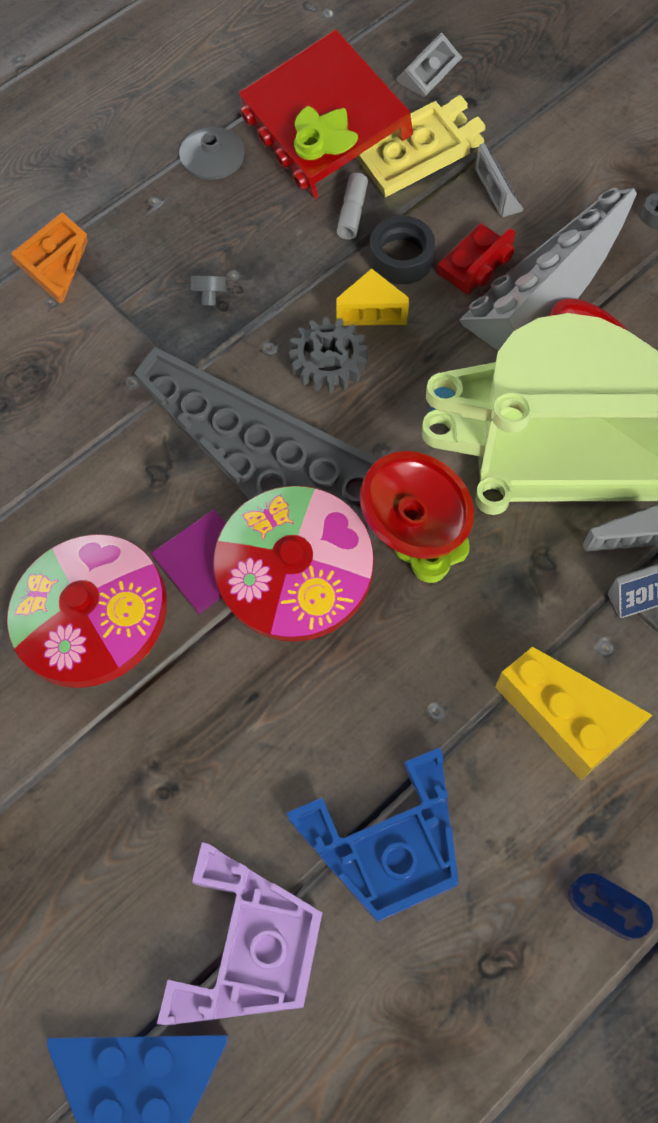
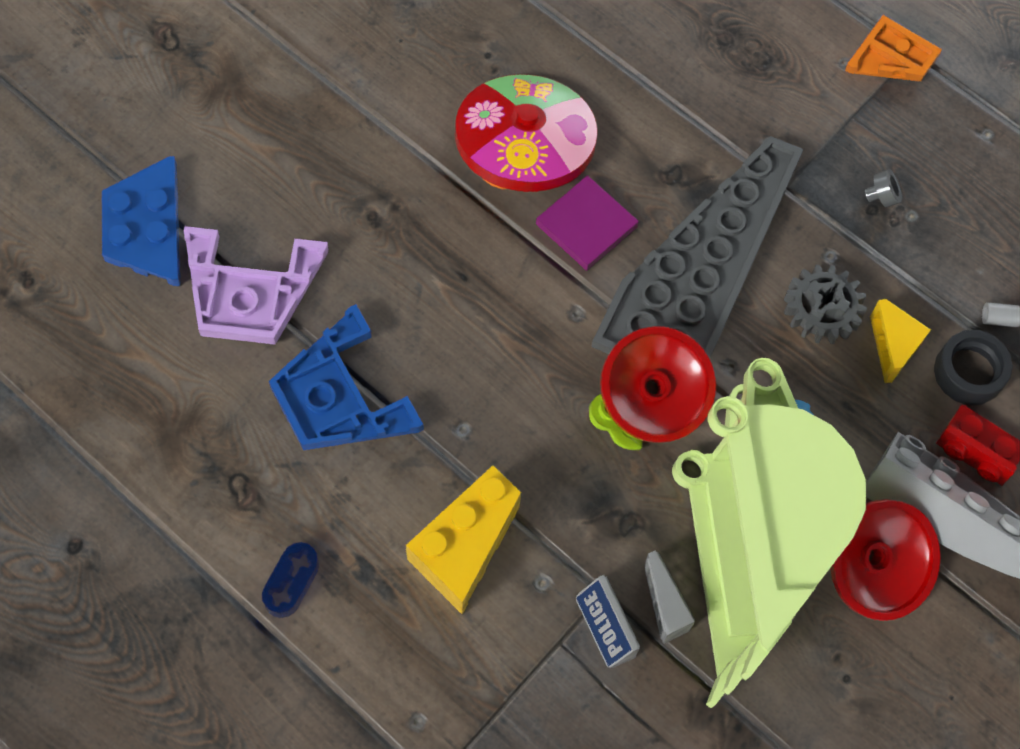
camera: 80 degrees right, 0 degrees up
(294, 563) = (587, 288): dish -> none

